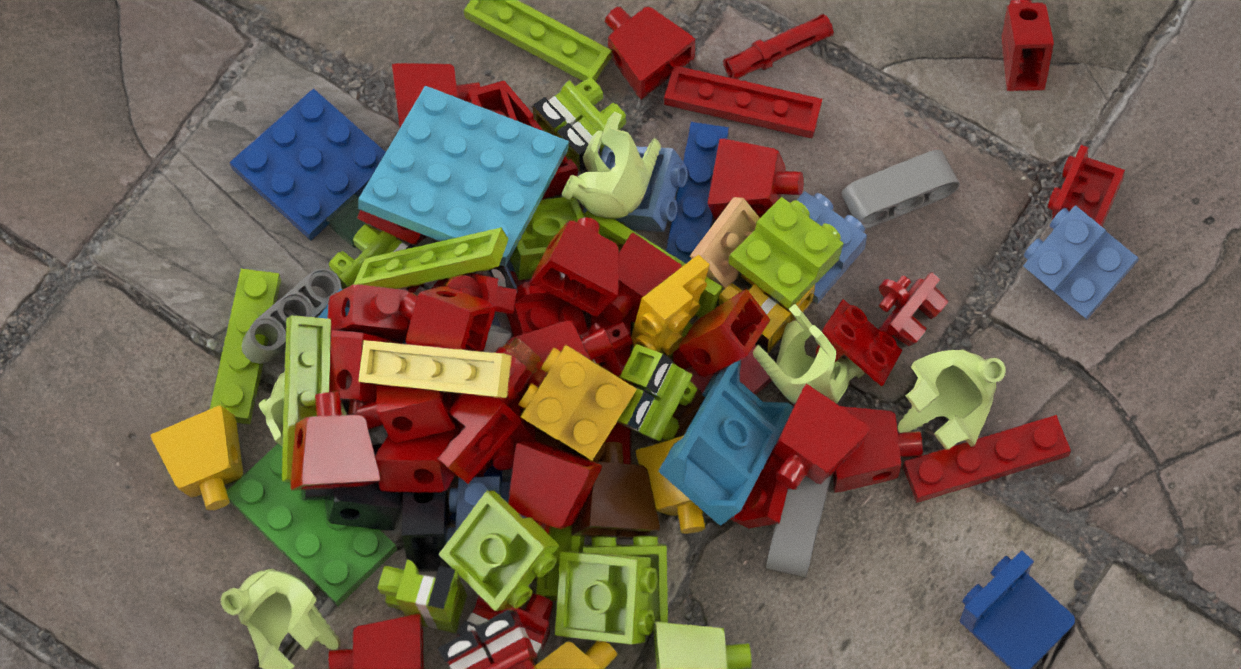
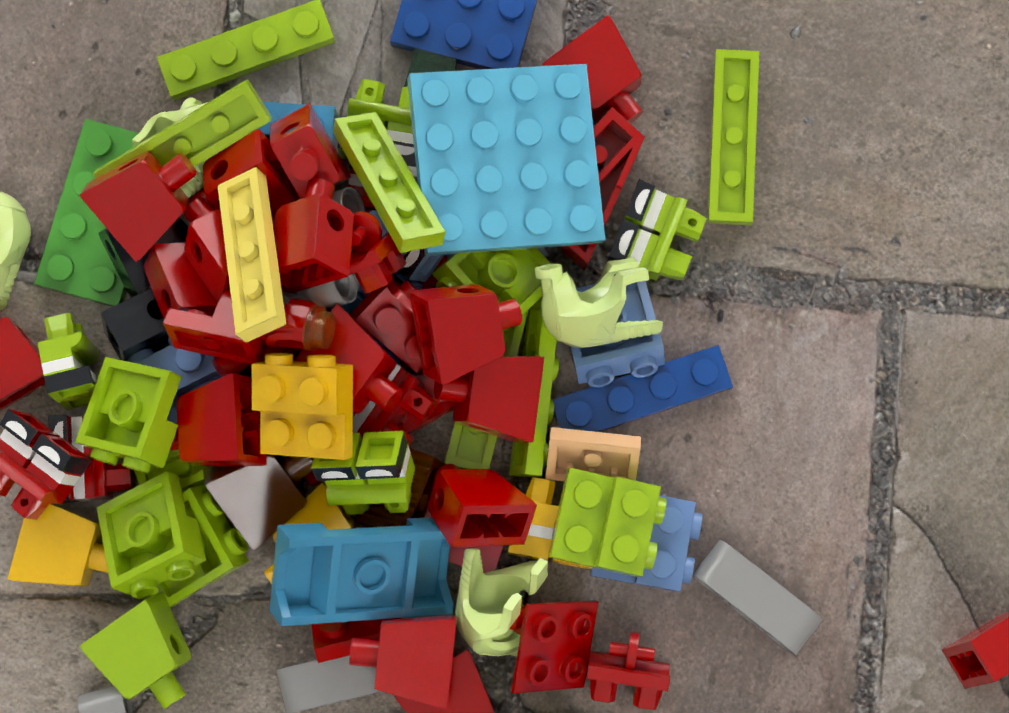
camera: 65 degrees right, 15 degrees up
(202, 455) = (106, 78): yellow torso -> none
(273, 321) = (305, 91): light grey beam -> none
(647, 47) = (777, 255): red torso -> none
(670, 307) = (463, 440): yellow plate -> none
(743, 101) = (770, 385): red plate -> none
(751, 174) = (678, 441): red torso -> none
(764, 53) = (845, 382): red pin -> none

